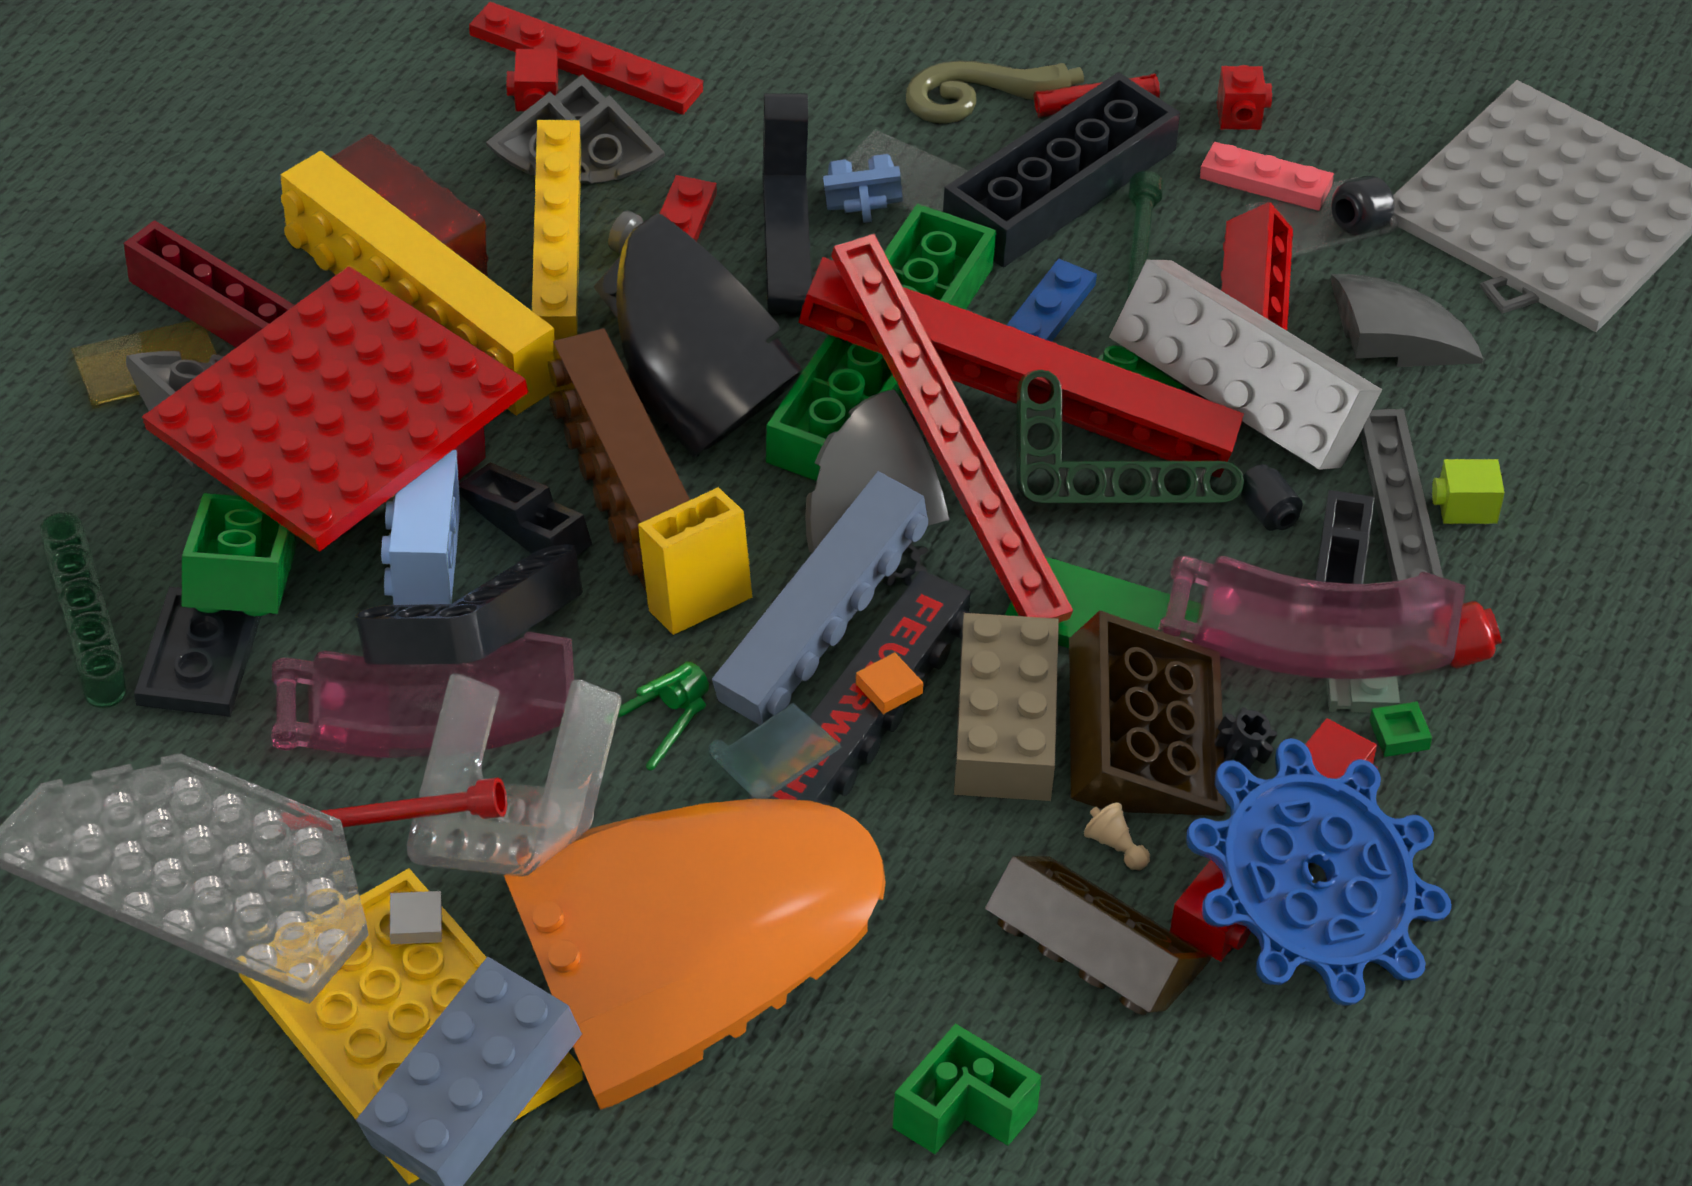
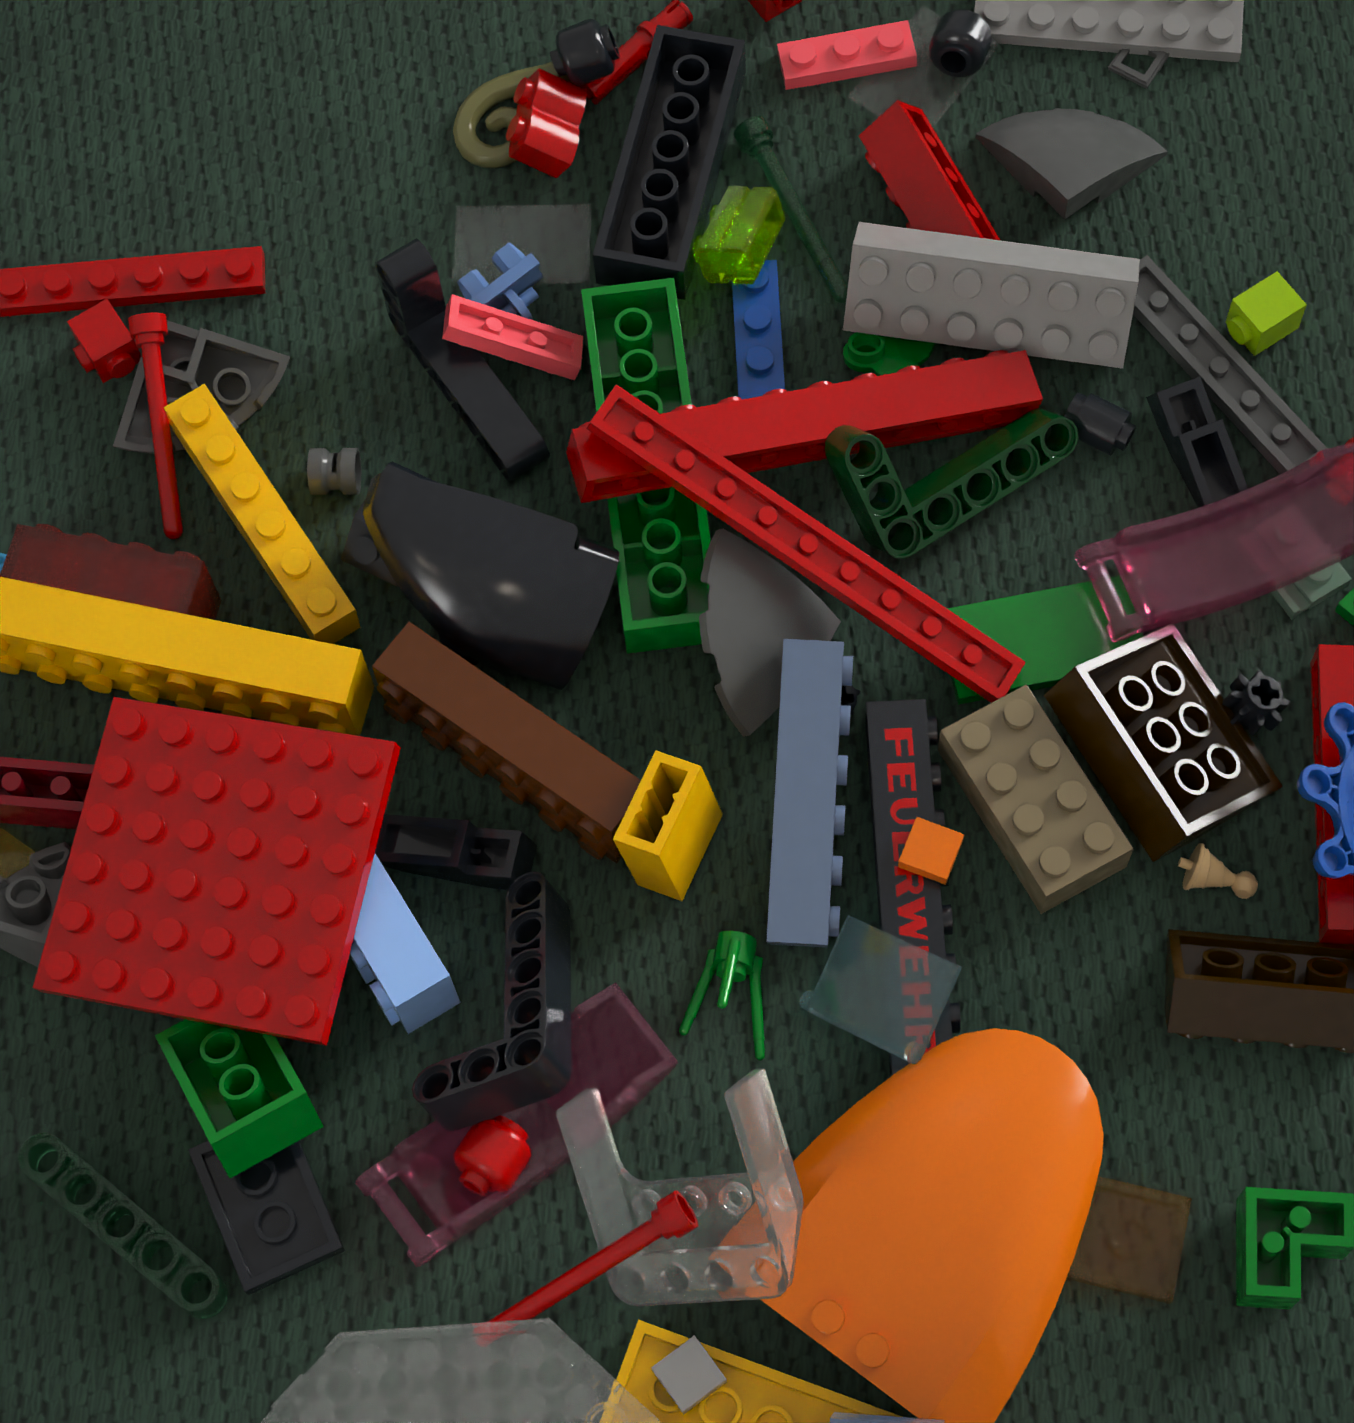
camera: 25 degrees left, 20 degrees up
(387, 698) = (492, 1155): none -> red head
(567, 75) = (149, 333): none -> red piece
(689, 204) = (351, 408): red plate -> none
(832, 204) = (512, 337): none -> coral plate
(842, 1036) = (1132, 1240): none -> clear orange tile
(984, 101) = (546, 122): none -> red brick
(1048, 65) = (585, 52): none -> black head
(1076, 237) = (739, 235): none -> clear neon green brick

